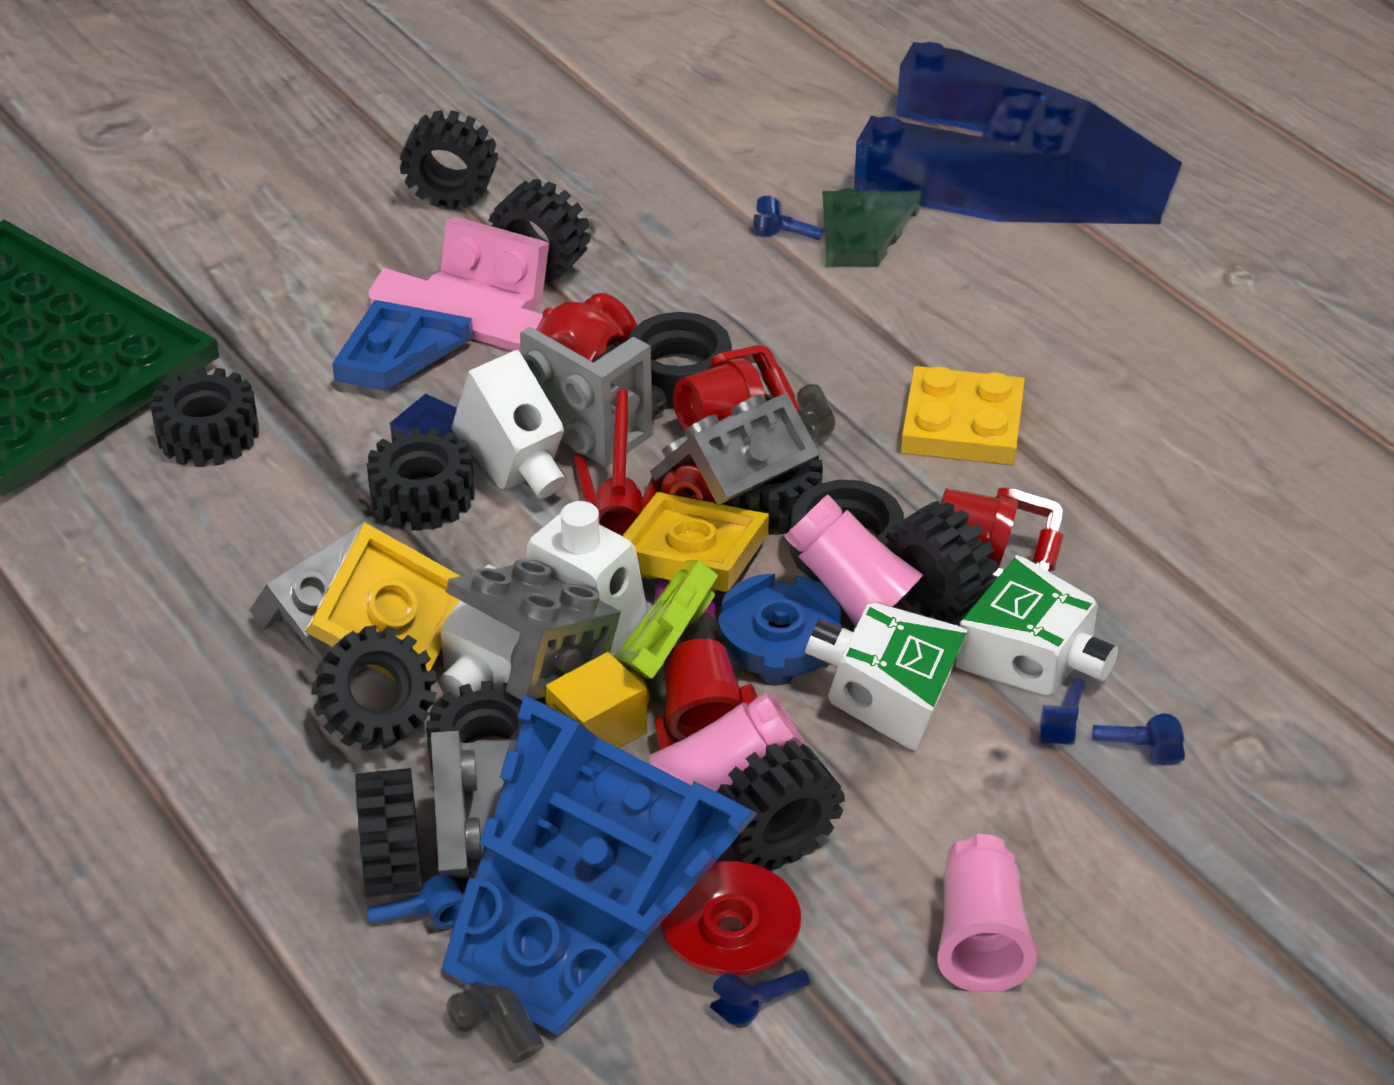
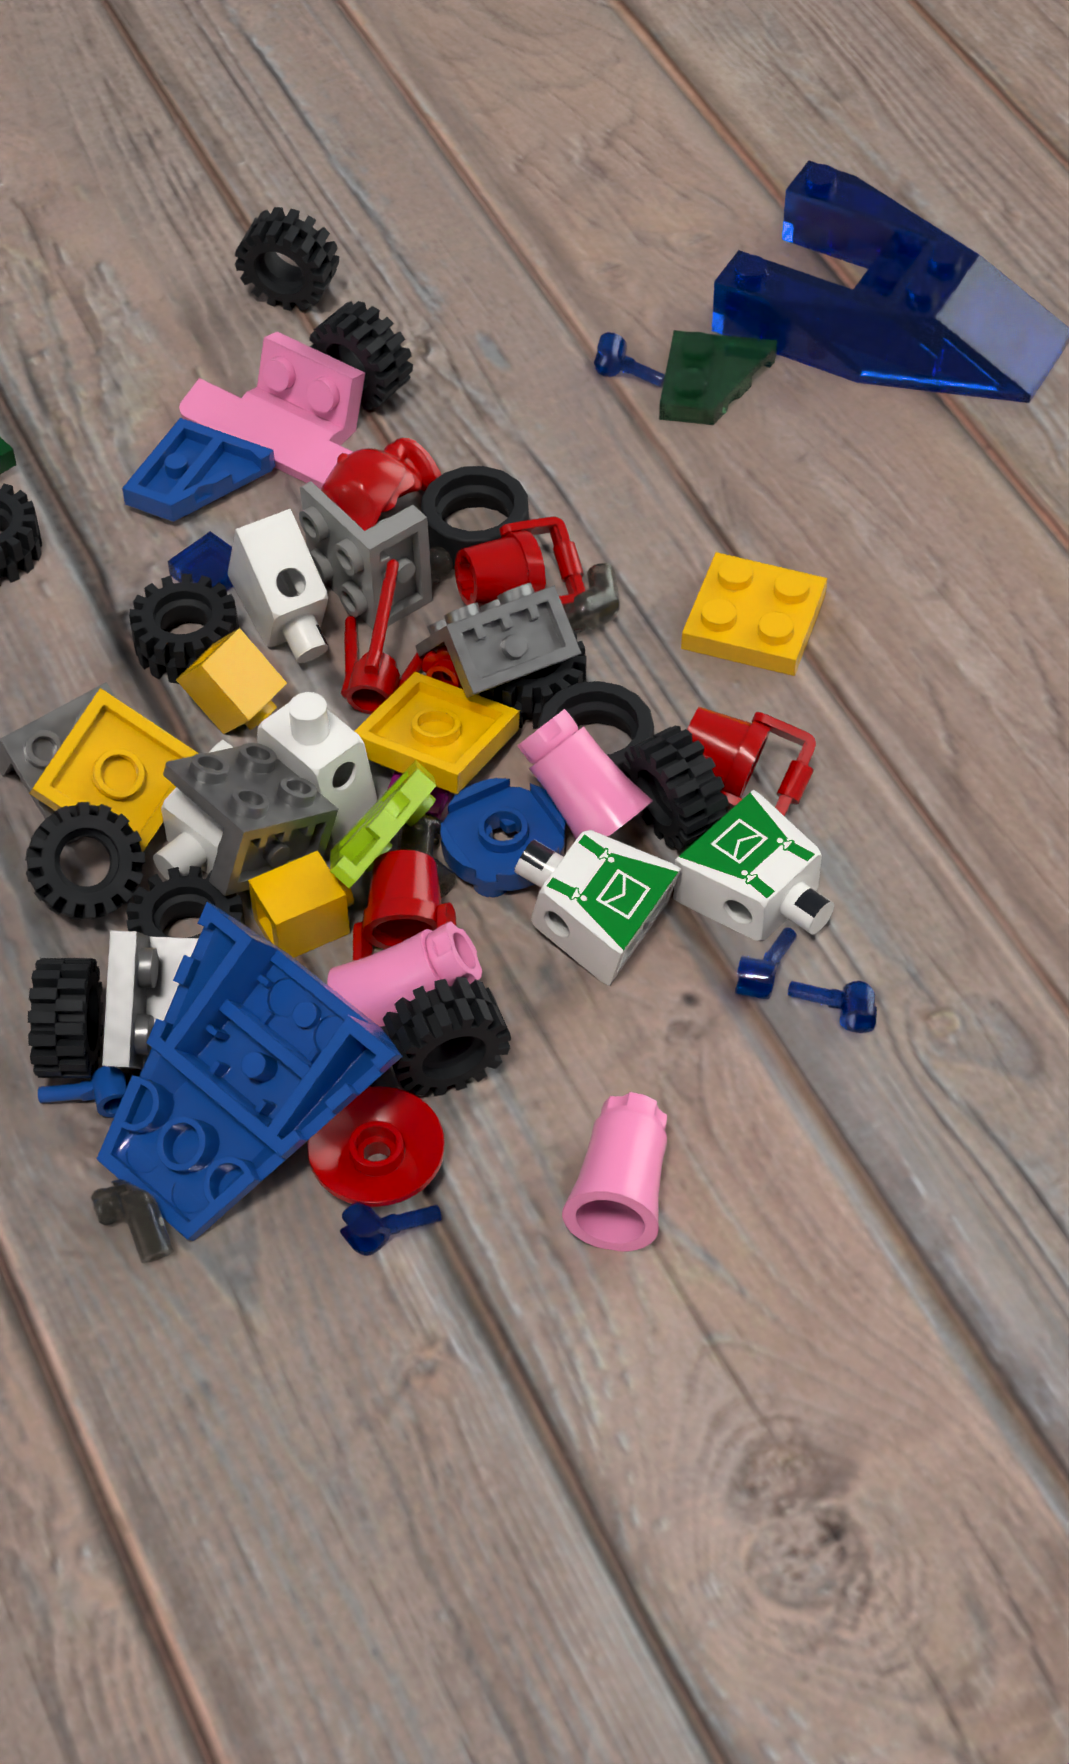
camera: 10 degrees right, 10 degrees up
(483, 517) = (233, 683): none -> yellow brick

